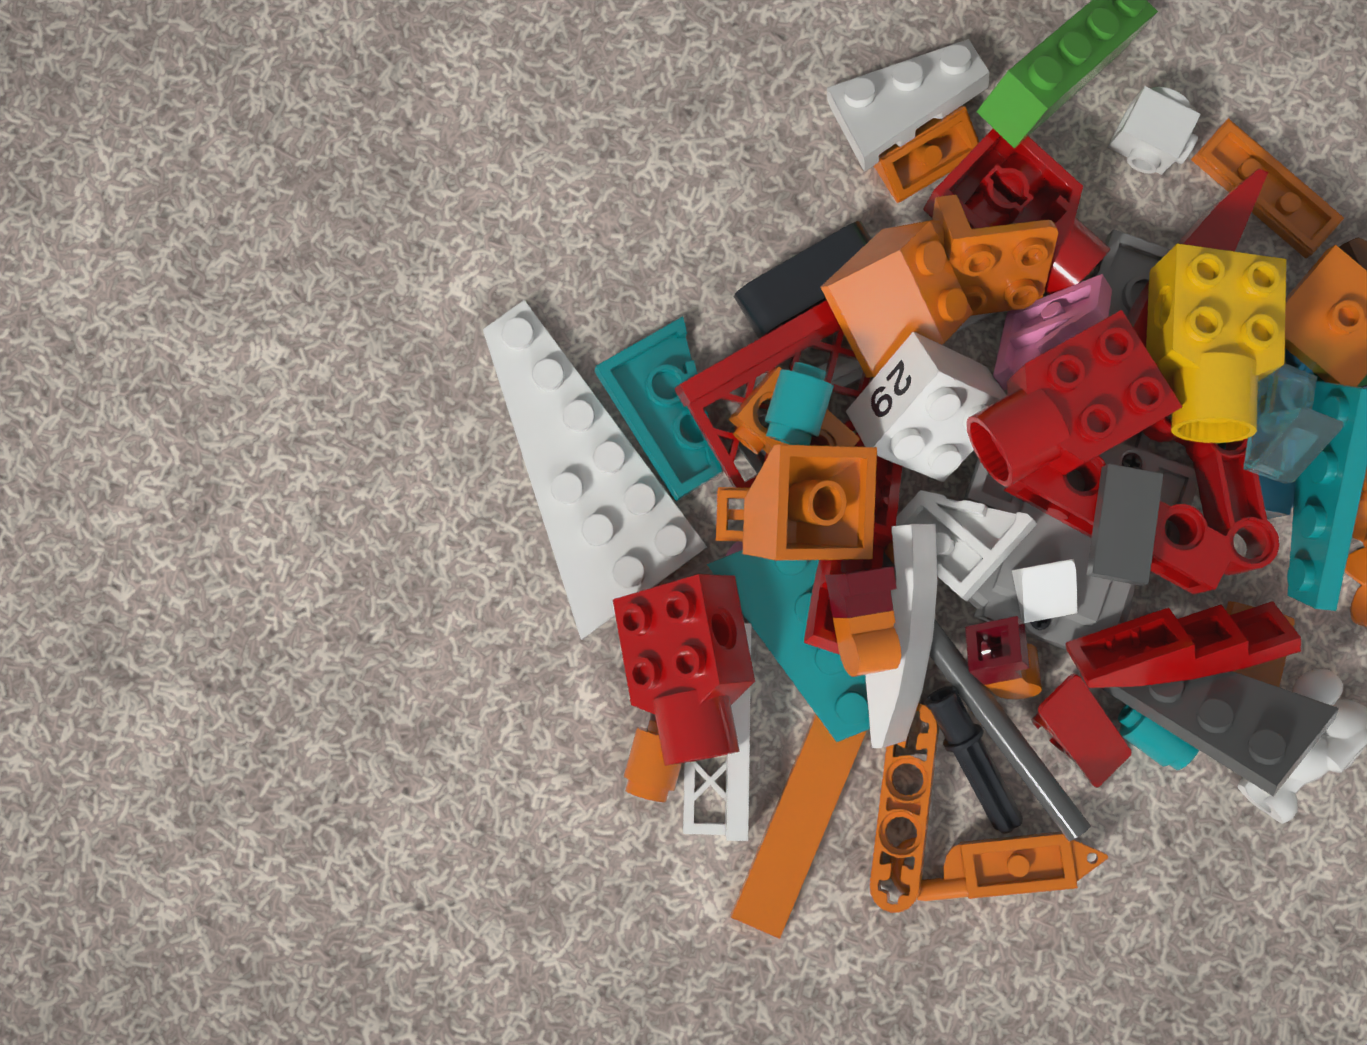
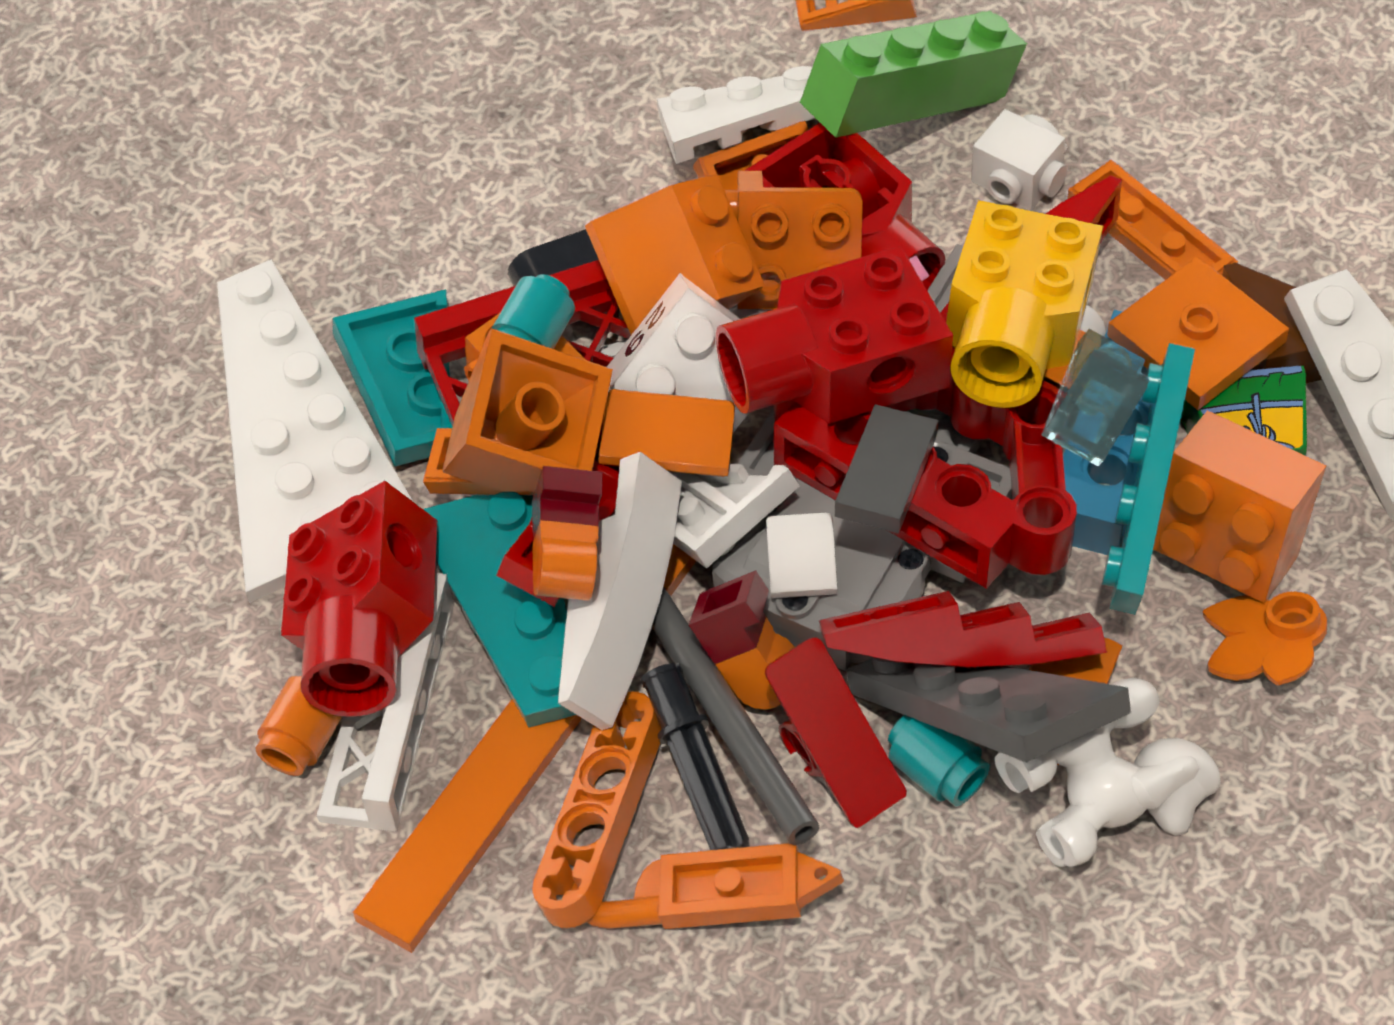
camera: 15 degrees right, 30 degrees down
(926, 488) = (669, 429): none -> orange slope

